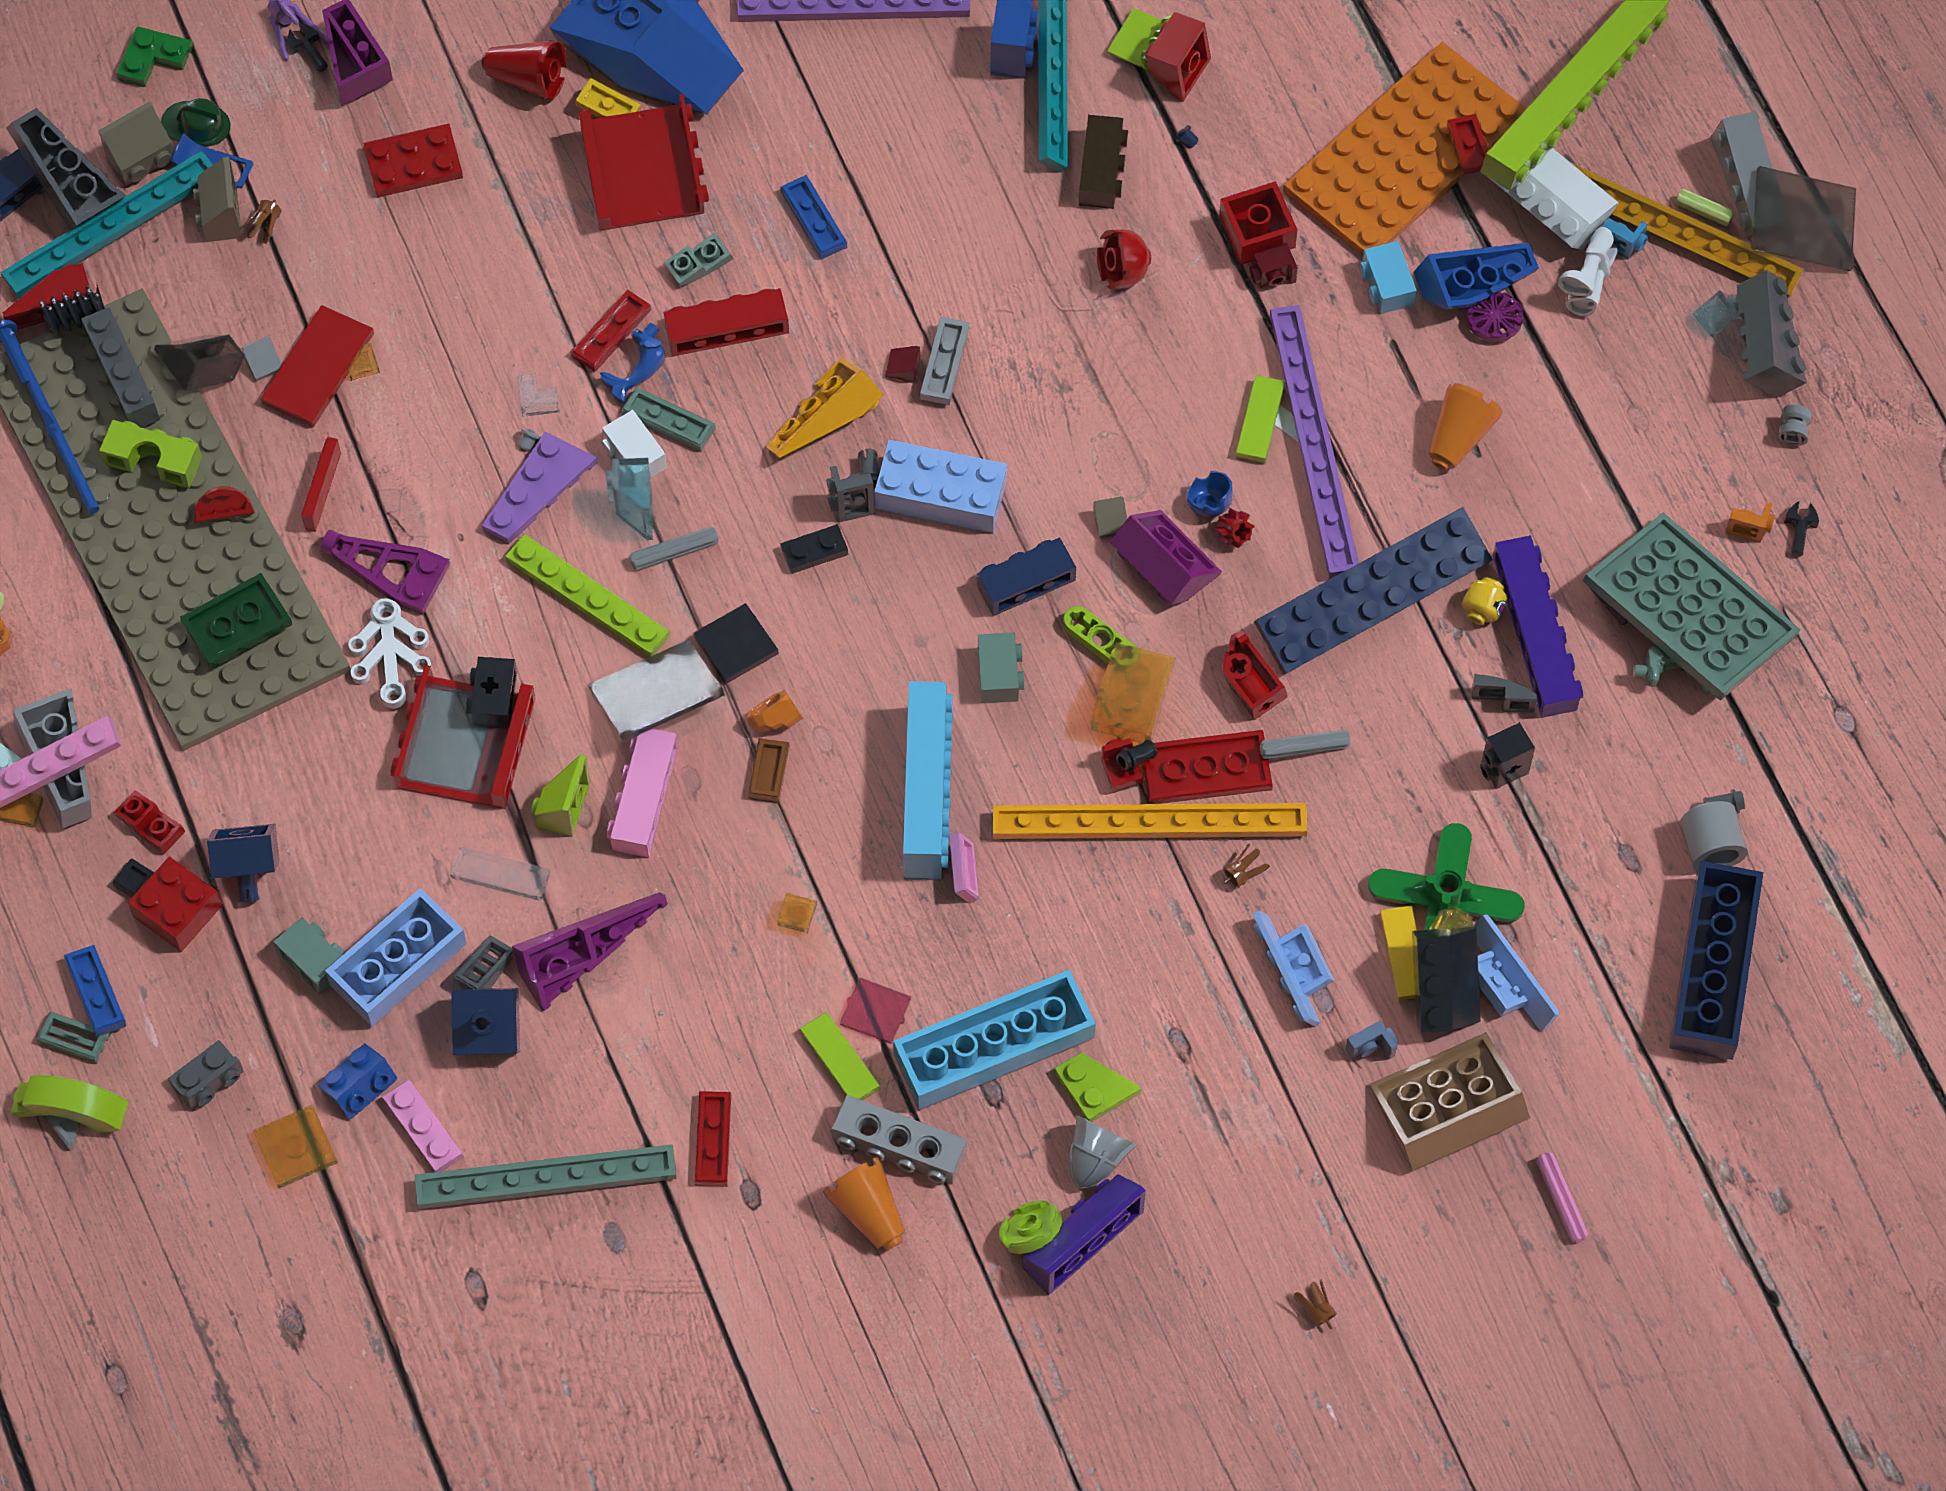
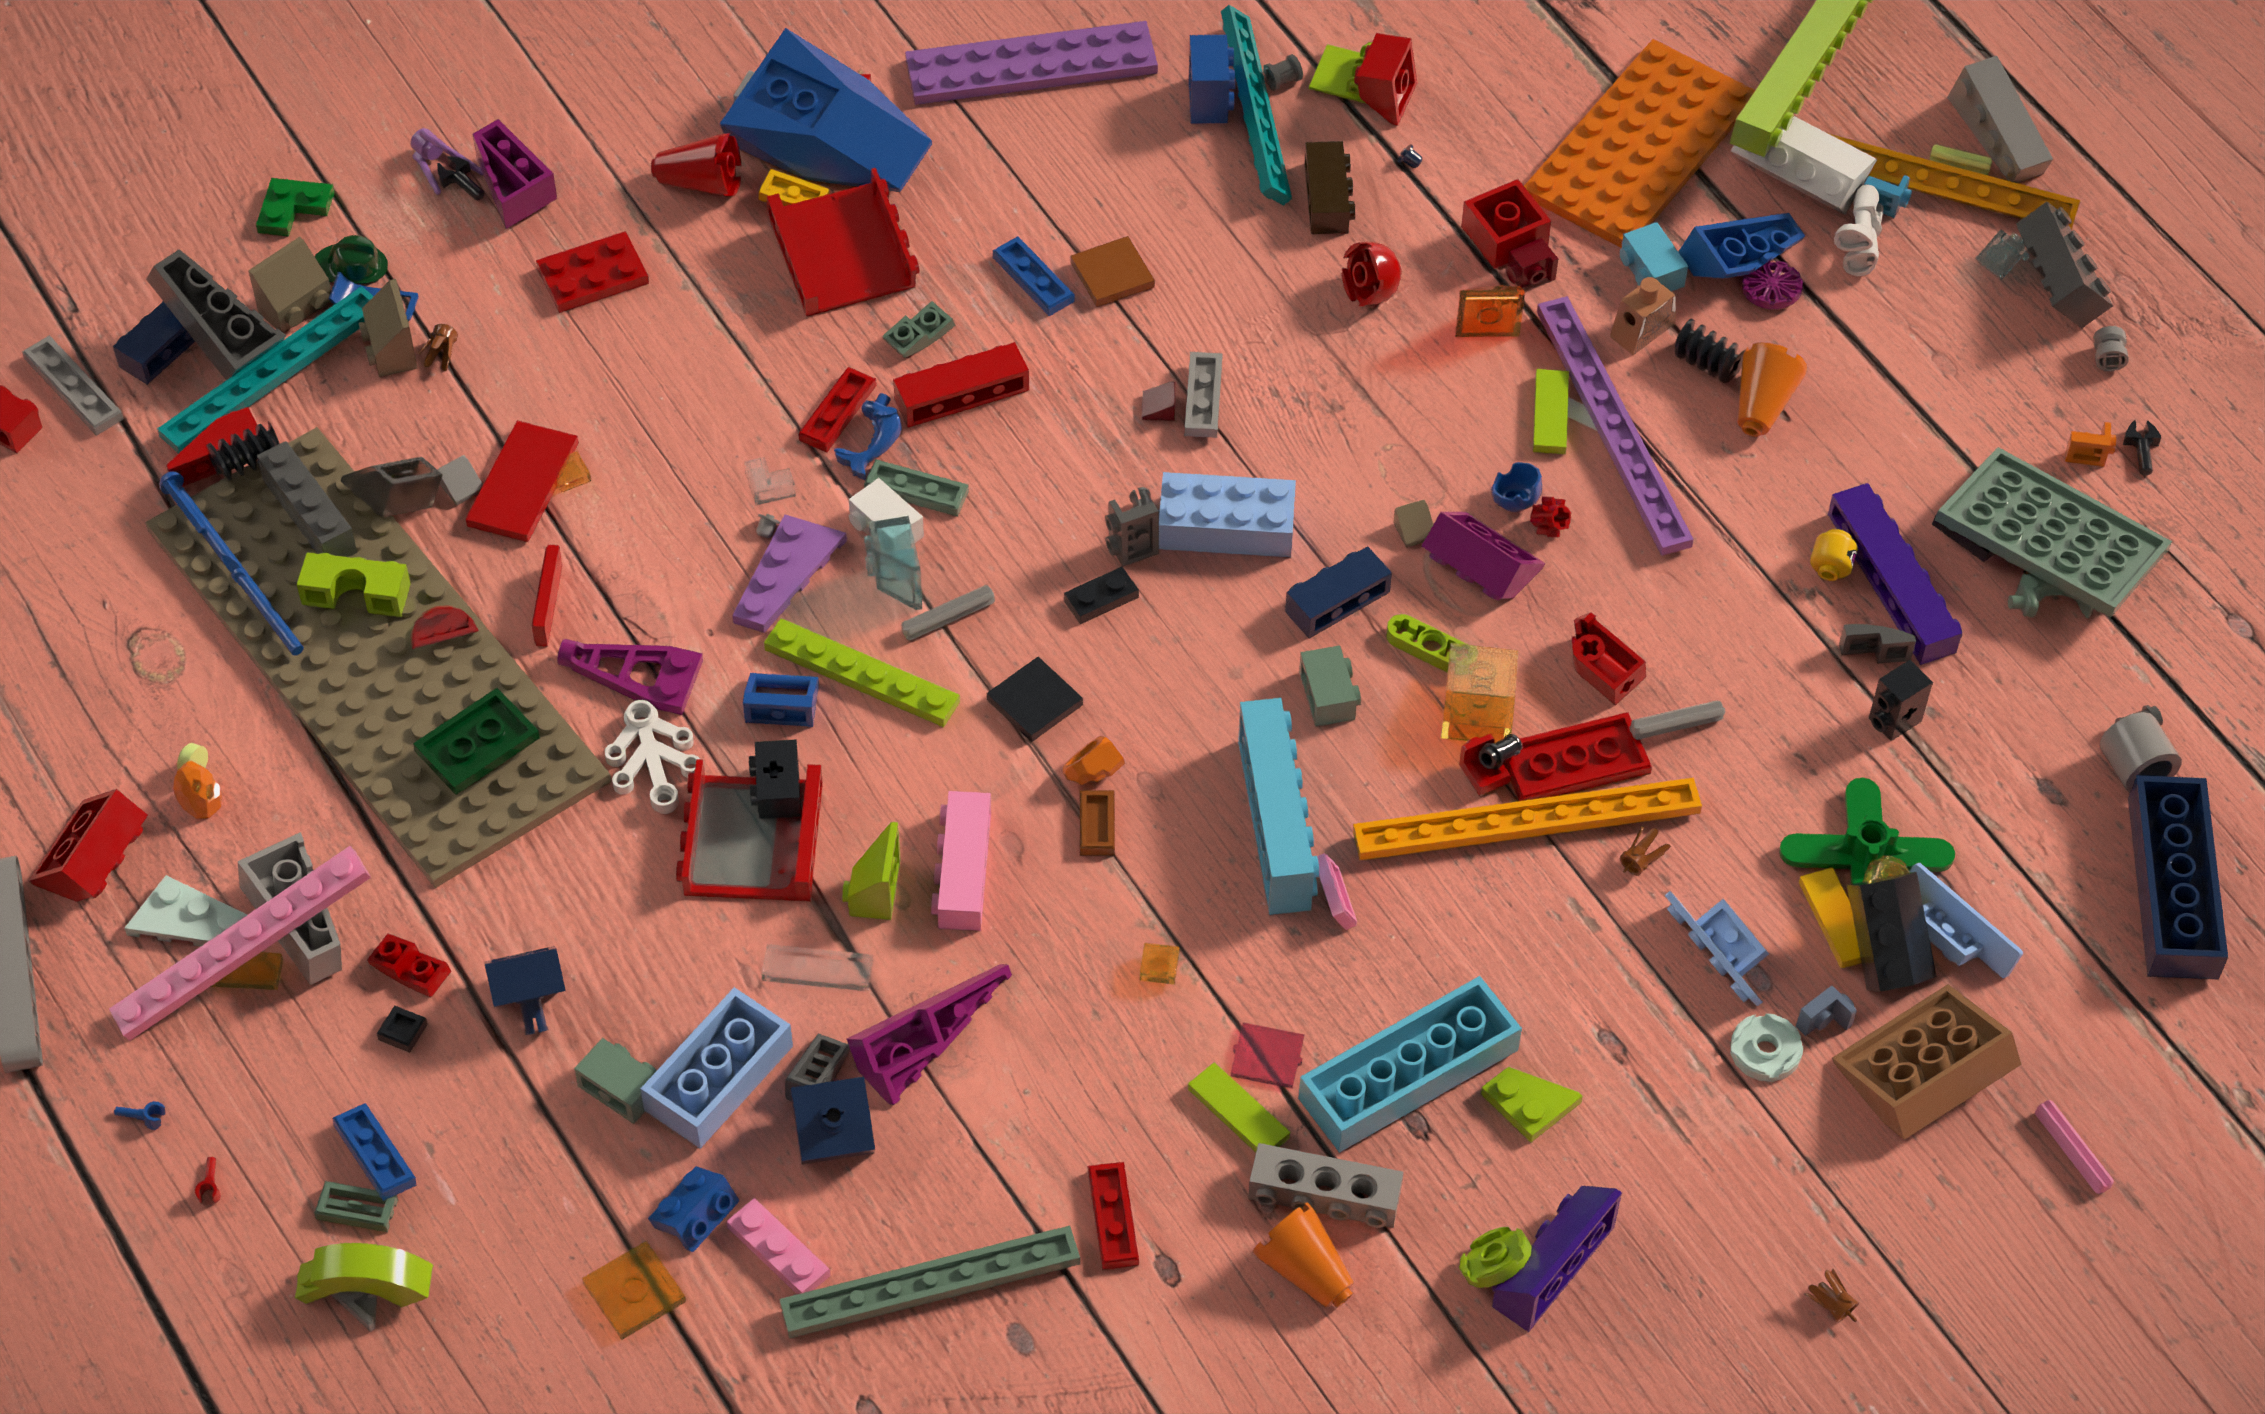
camera: 10 degrees left, 10 degrees down
(175, 904) = (453, 1045): red brick -> none
(206, 1075) = (517, 1226): dark grey bracket -> none
(511, 623) = (780, 708): none -> blue tile
(656, 690) = (958, 754): clear smoke piece -> none
(840, 397) = (1097, 442): light orange wedge -> none
(886, 221) = (1112, 271): none -> dark orange tile
(1085, 33) = (1283, 72): none -> dark grey bush
(1095, 1153) = (1548, 1169): light grey helmet -> none
(1223, 311) = (1490, 311): none -> clear orange slope
(1314, 1083) = (1765, 1065): none -> light aqua tile
(1368, 331) = (1644, 315): none -> nougat torso
(1373, 590) = (1712, 560): dark blue plate -> none
(1415, 379) = (1707, 353): none -> black piece
(1468, 142) = (1707, 124): red plate -> none
(1804, 218) = (2068, 154): clear smoke piece -> none

